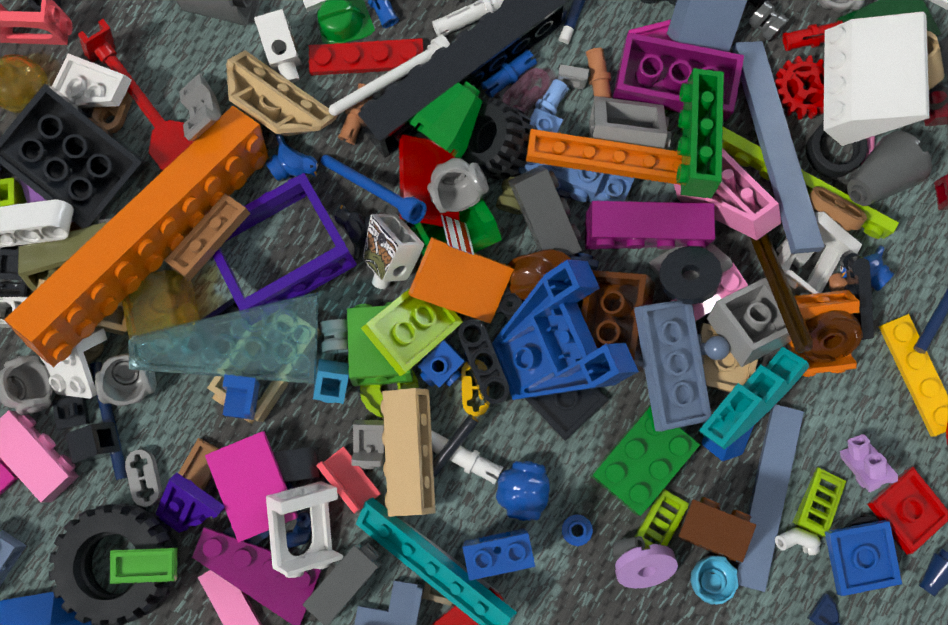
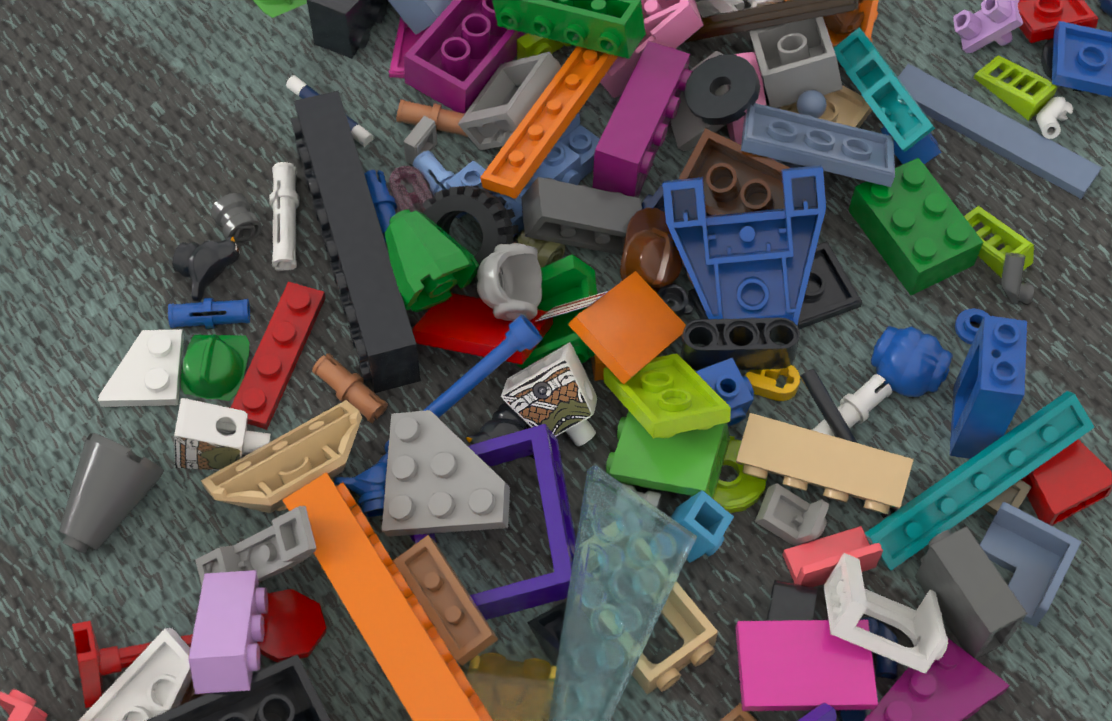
camera: 75 degrees left, 20 degrees down
(137, 112) = (227, 632): none -> lavender brick
(240, 396) = (682, 632): blue panel -> none
(292, 198) = (438, 481): none -> light grey plate
(388, 78) = (314, 266): white piece -> none
(646, 567) = (1042, 262): lavender tile -> none
(715, 587) = (1075, 207): medium azure hair -> none
(717, 530) = (1027, 164): reddish brown brick -> none

